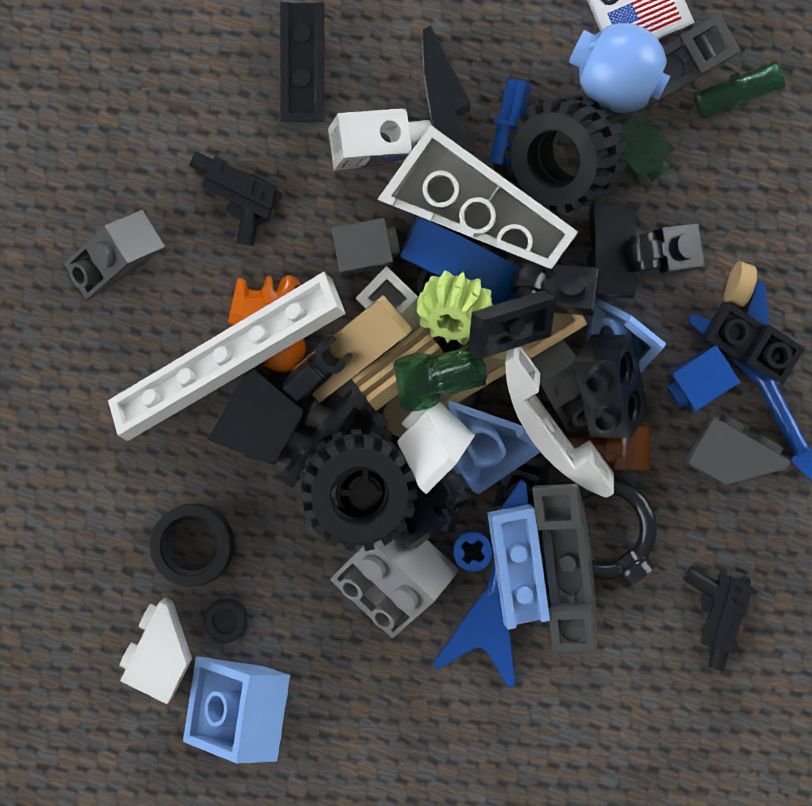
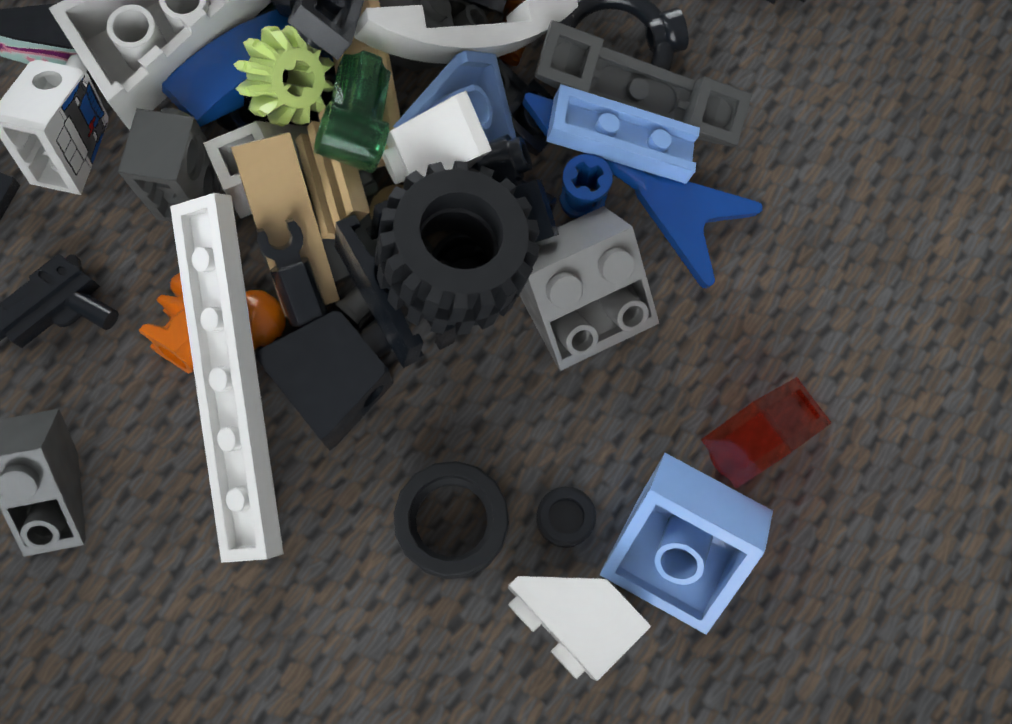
camera: 75 degrees left, 15 degrees down
(334, 741) = (765, 432): none -> clear red slope

